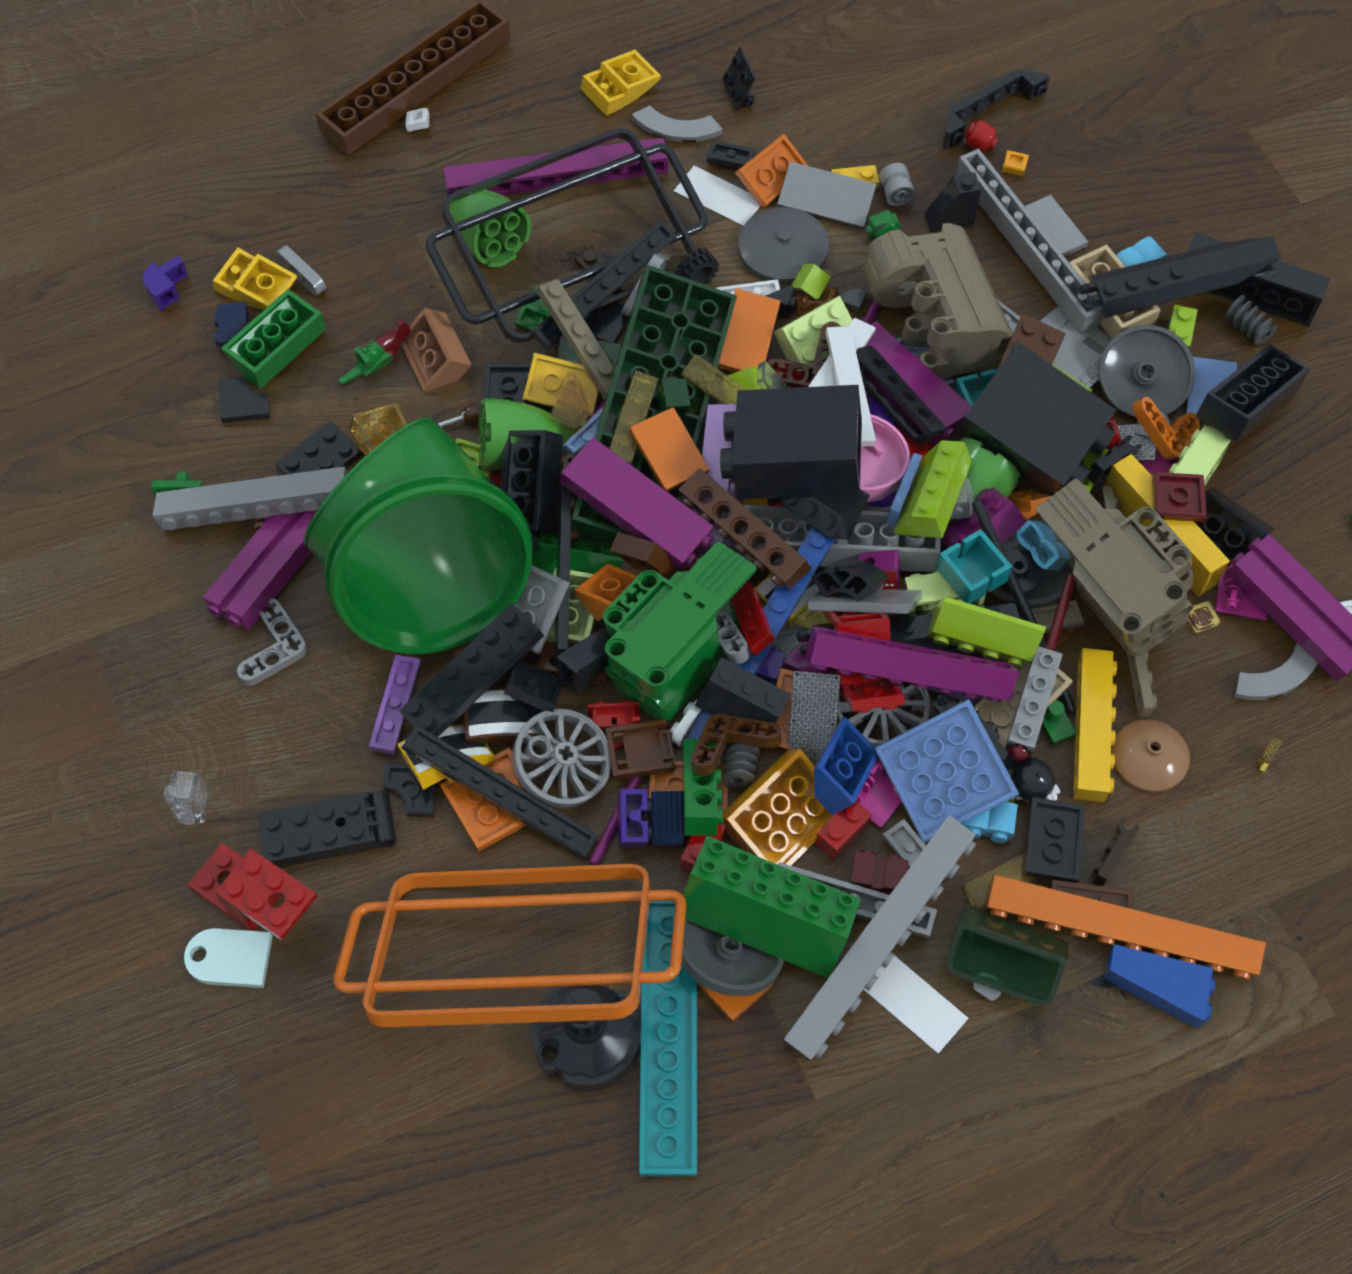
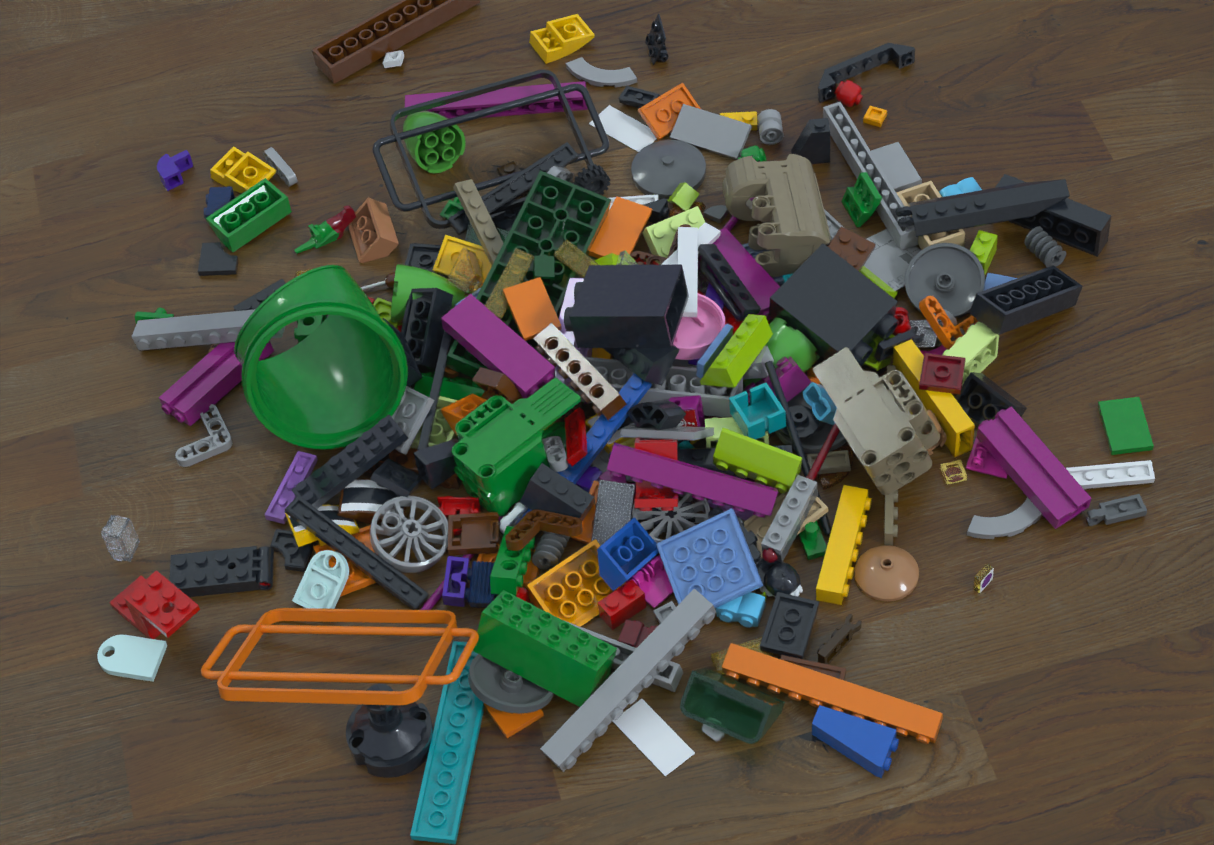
camera: 15 degrees right, 10 degrees down
(461, 837) = (321, 583): none -> light aqua tile
(1026, 272) = (861, 199): none -> green slope

